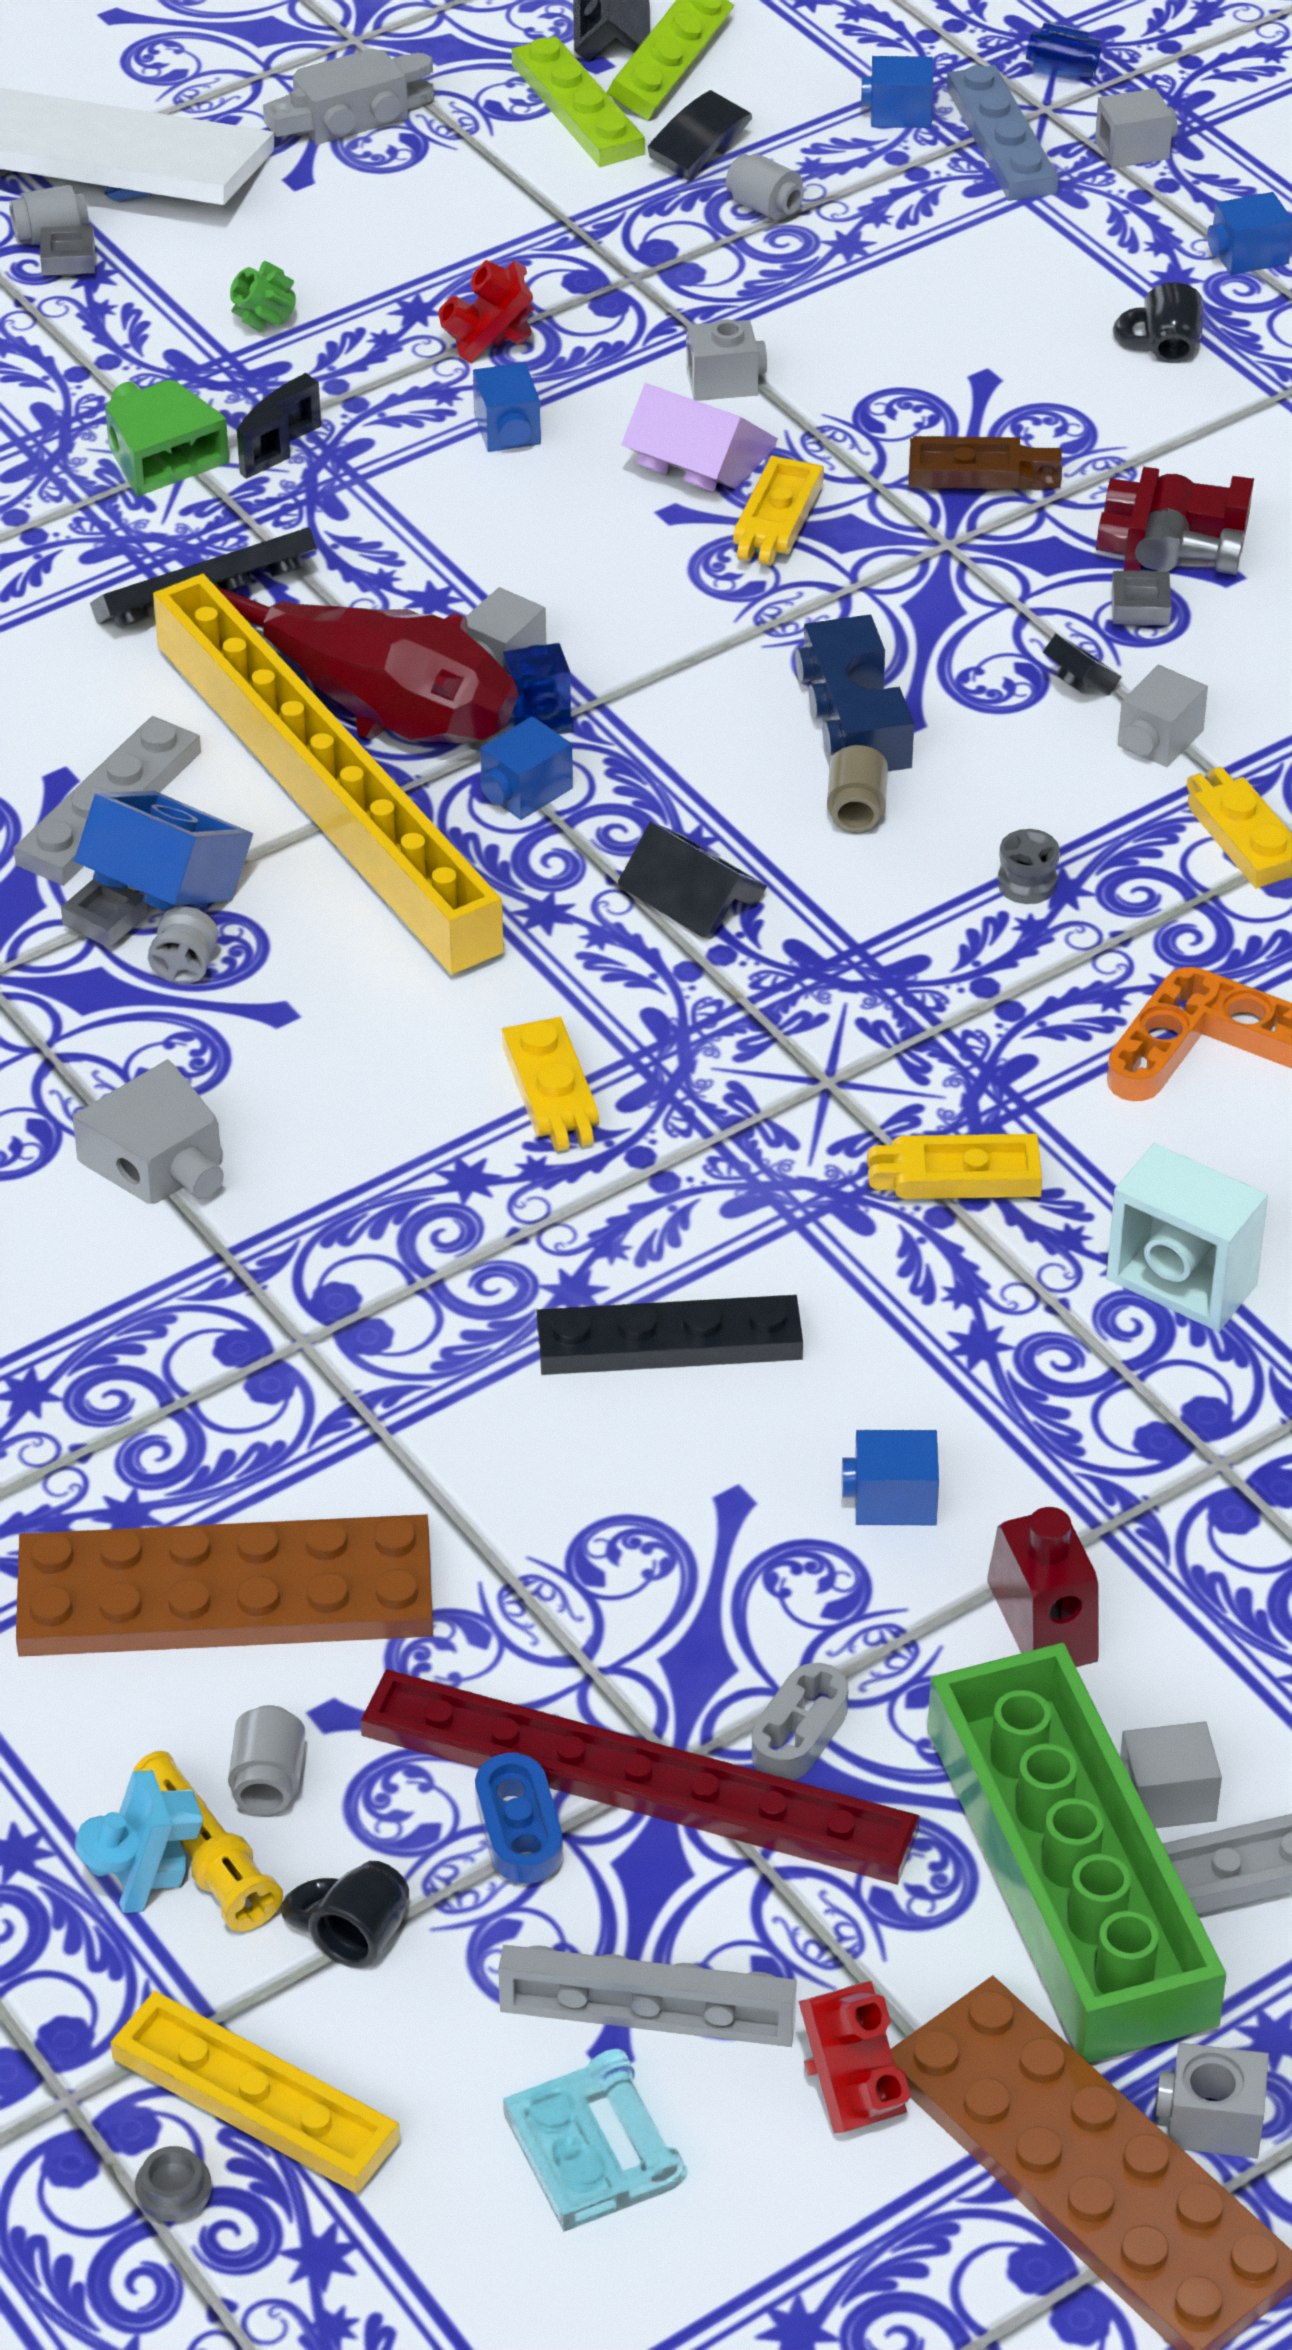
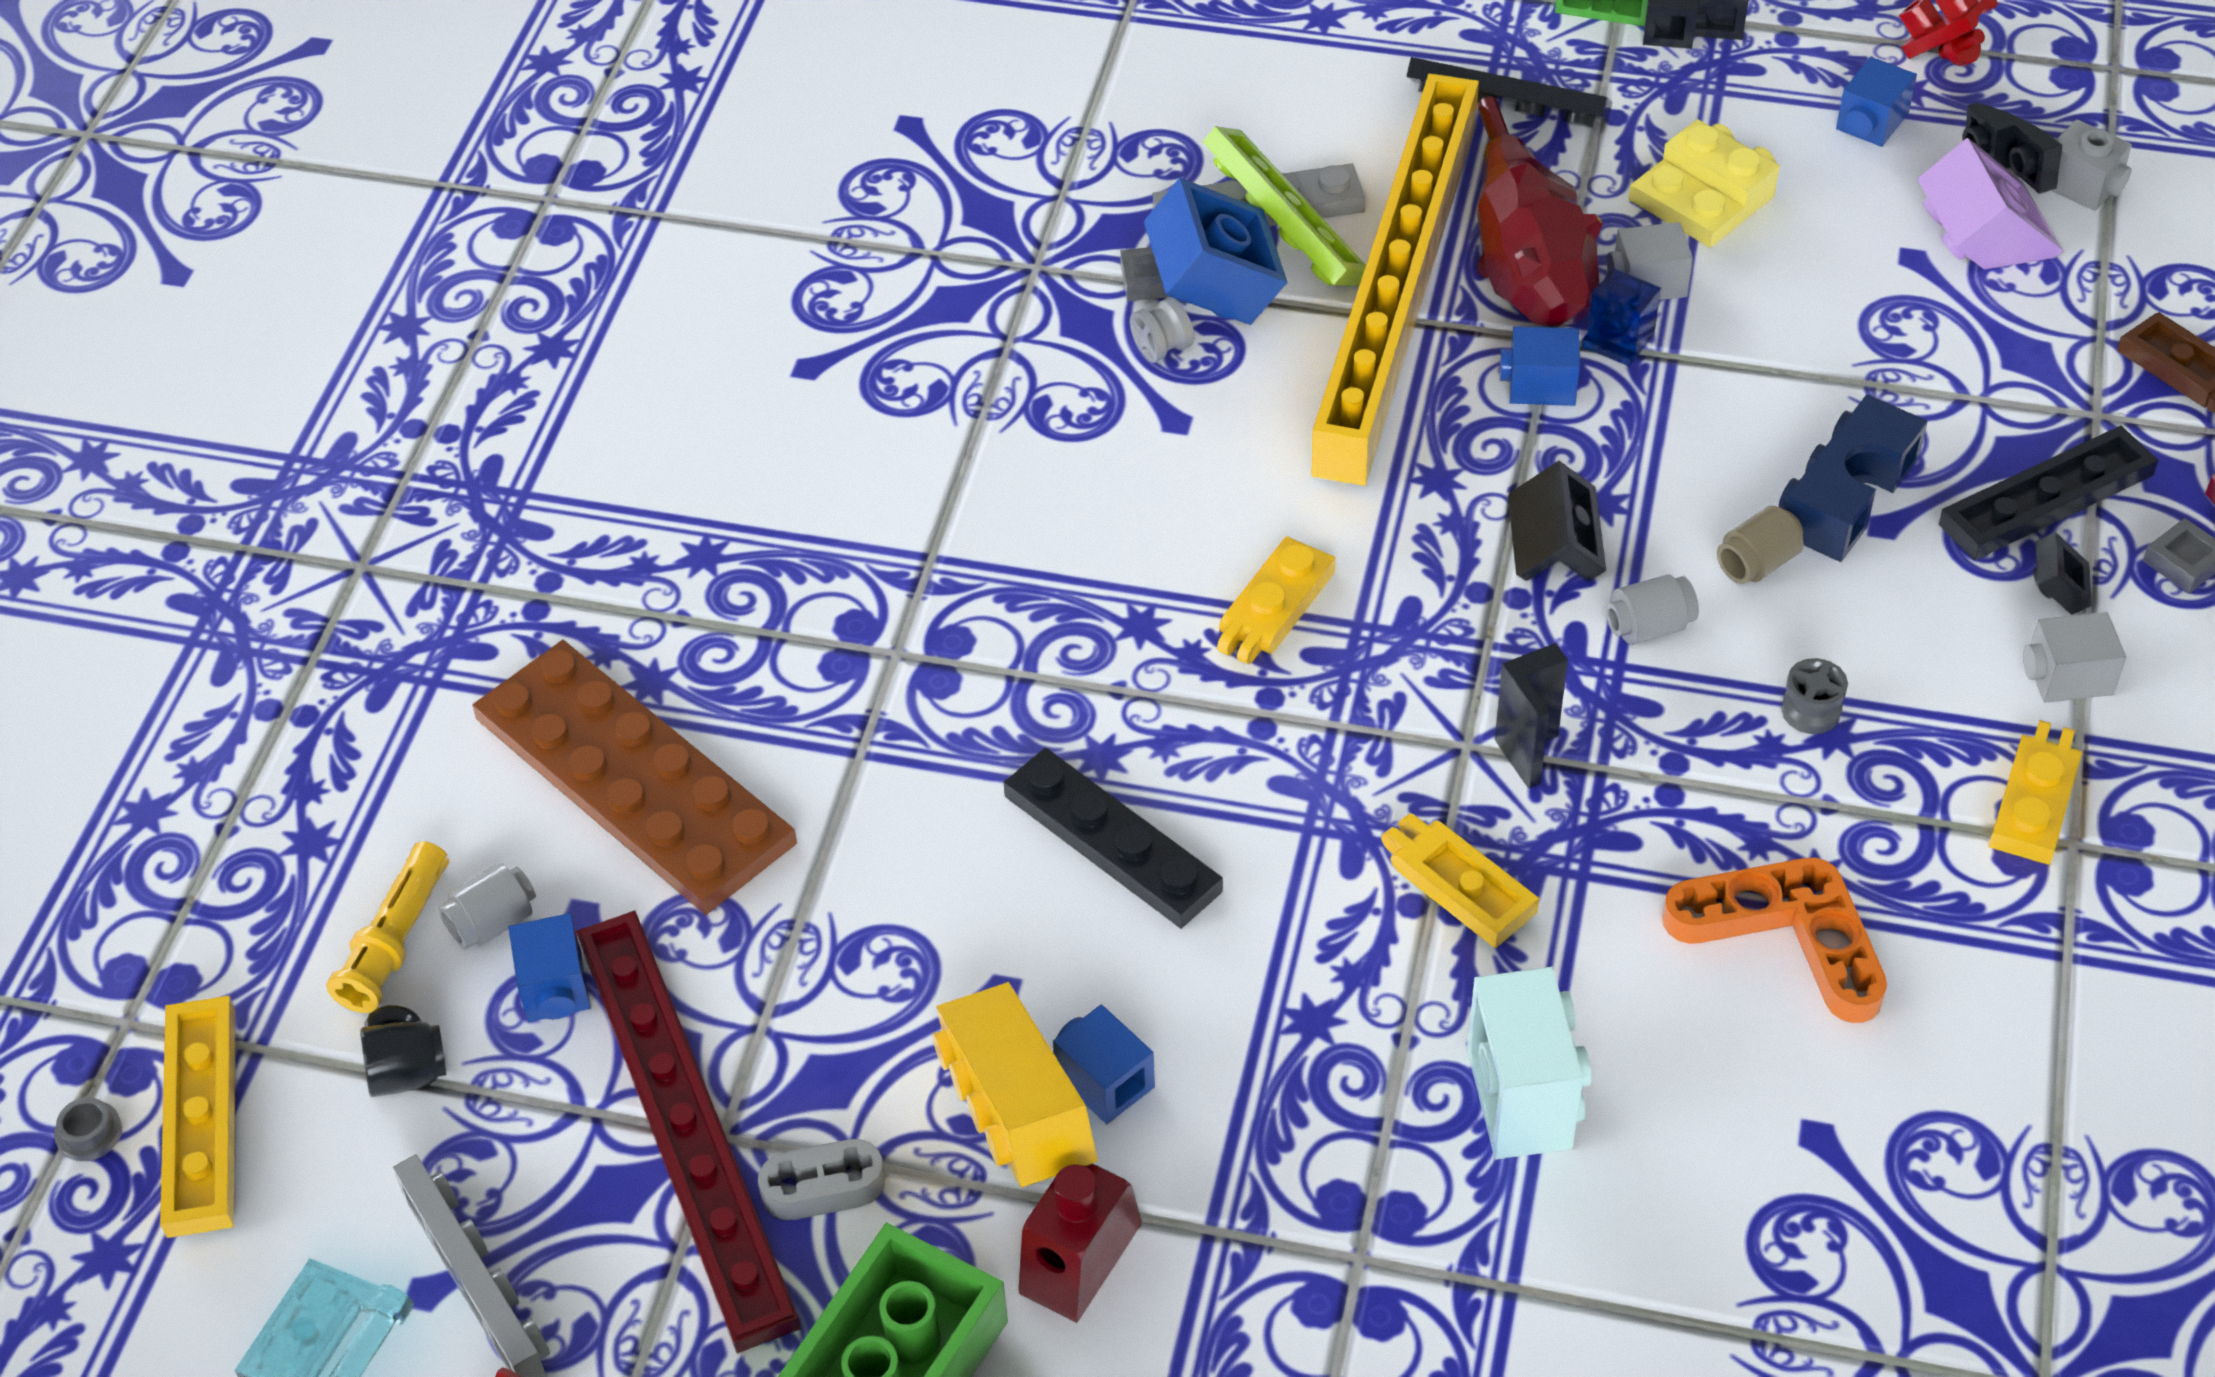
camera: 50 degrees right, 5 degrees up
(142, 1839) = (336, 894): medium azure hips -> none
(152, 1137) = (977, 443): light grey torso -> none
(190, 786) = (1298, 221): none -> lime plate
(387, 1757) = (549, 967): none -> blue brick
(454, 550) = (1707, 182): none -> light yellow plate
(522, 1822) = (566, 1084): blue plate -> none
(674, 369) = (2015, 145): none -> black slope
(777, 508) = (1982, 301): yellow hinge -> none
(842, 885) = (1652, 608): none -> light grey brick
(878, 1013) = (1530, 709): none -> black panel
(884, 1519) = (1013, 1085): none -> yellow brick
(997, 617) = (2047, 492): none -> black plate

